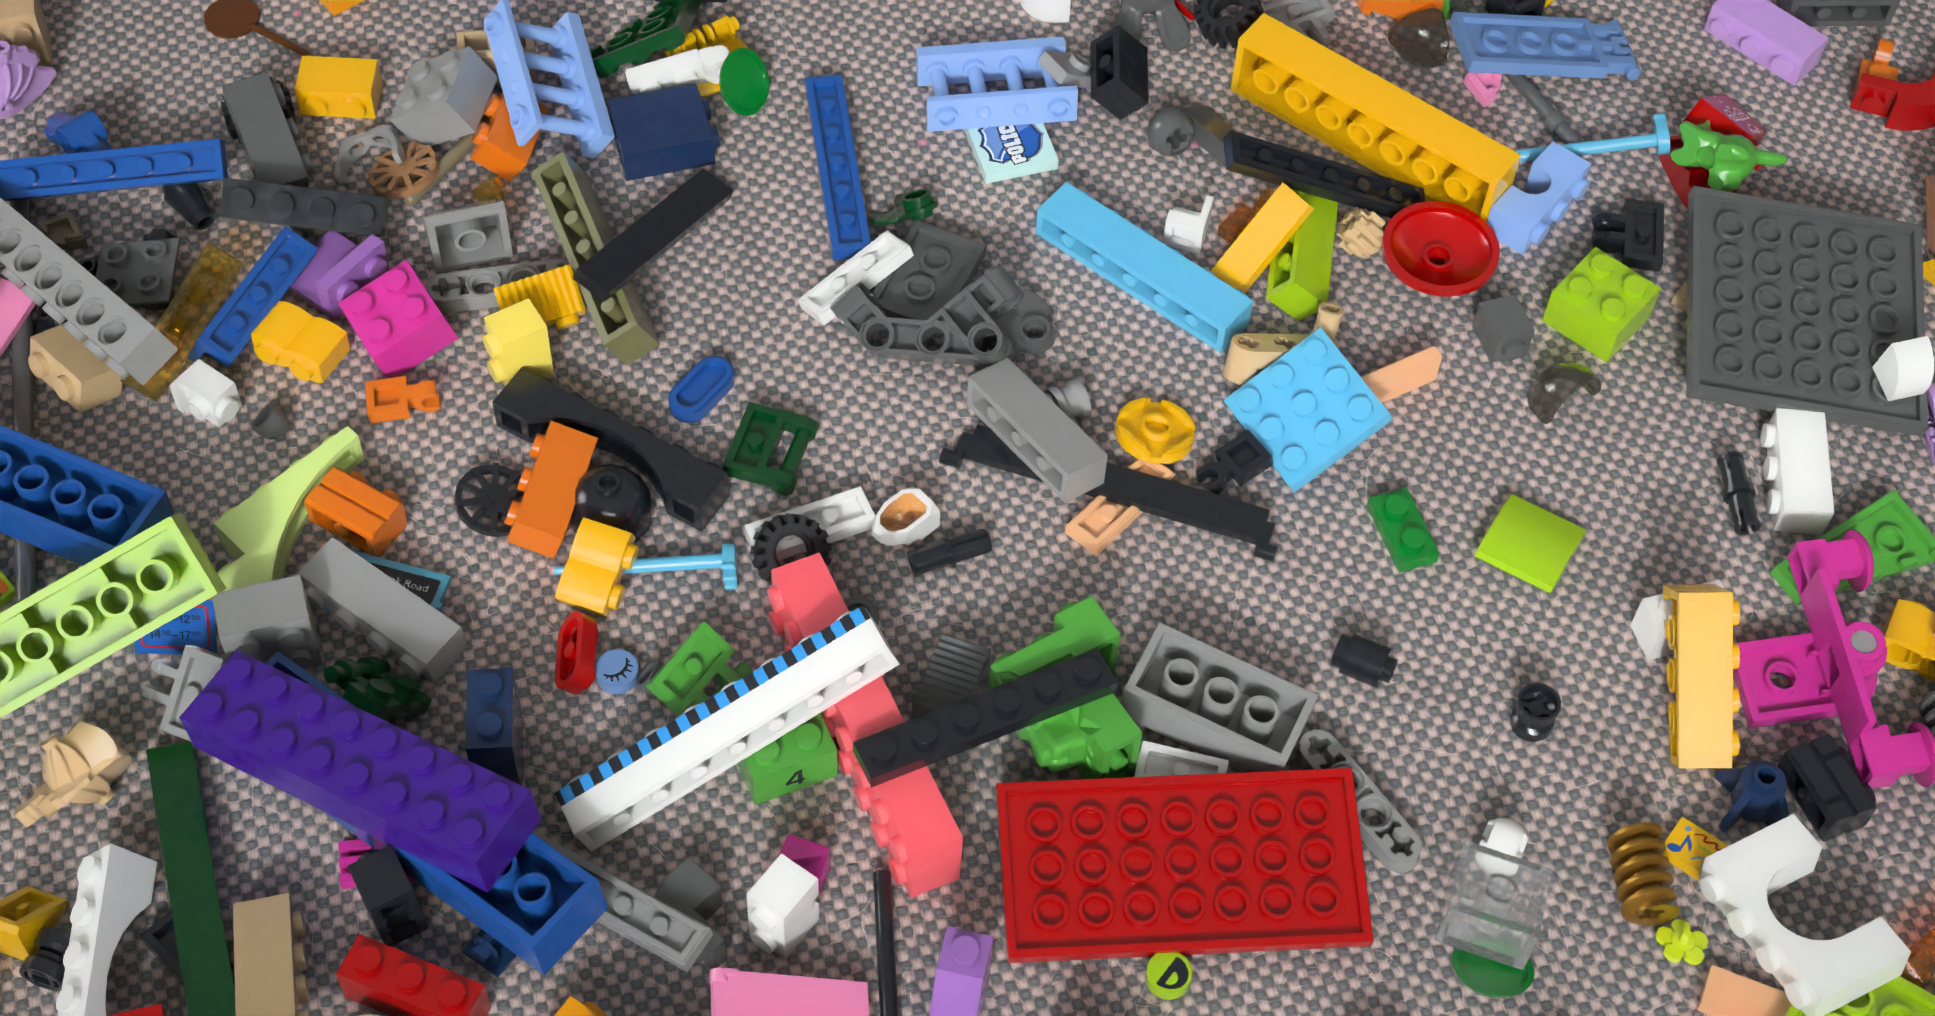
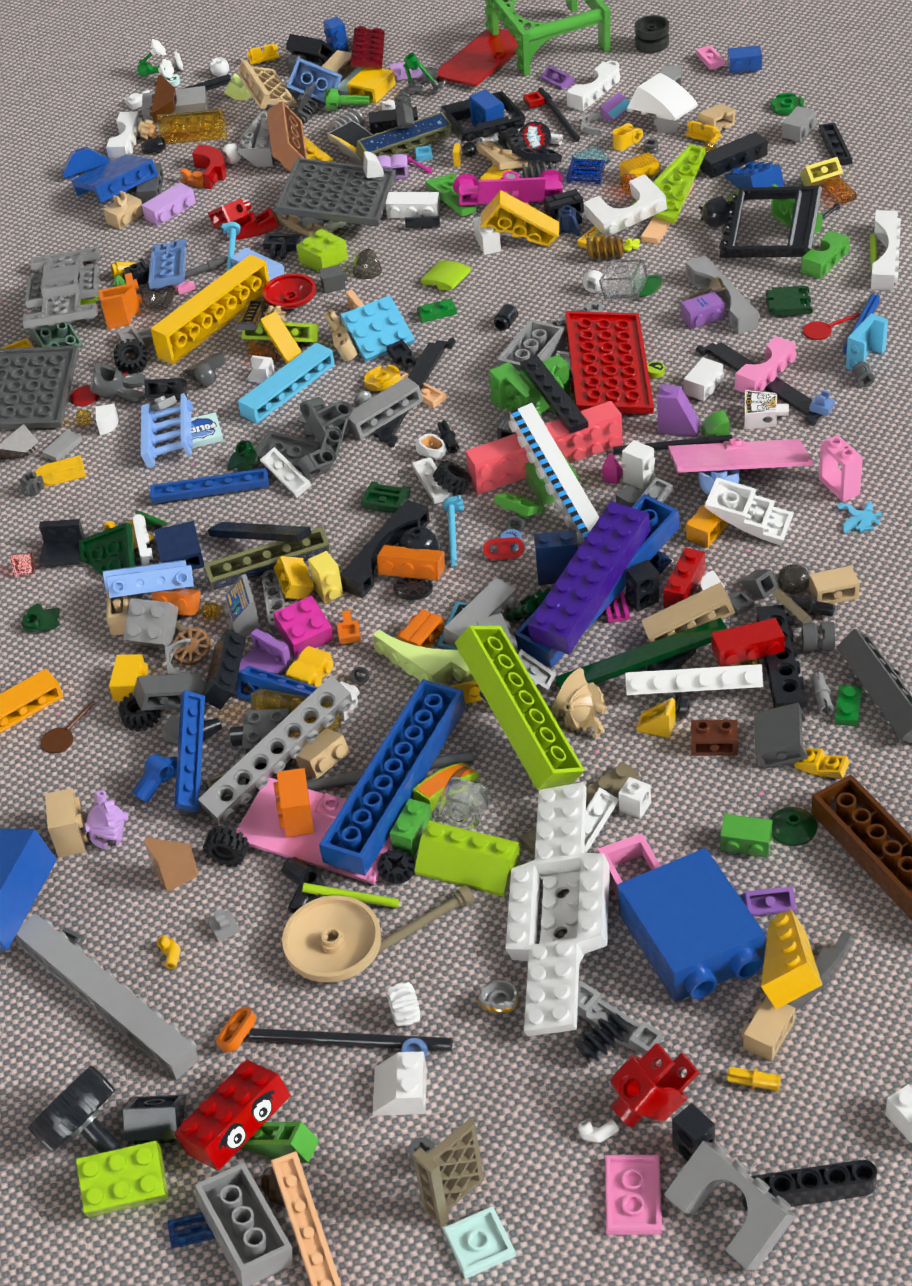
camera: 80 degrees left, 10 degrees down
(596, 568) = (458, 541): yellow brick -> none
(701, 389) = (346, 525): blue tile -> none
(1535, 712) = (530, 276): black wheel -> none
(1725, 156) = (251, 206): bright green animal -> none

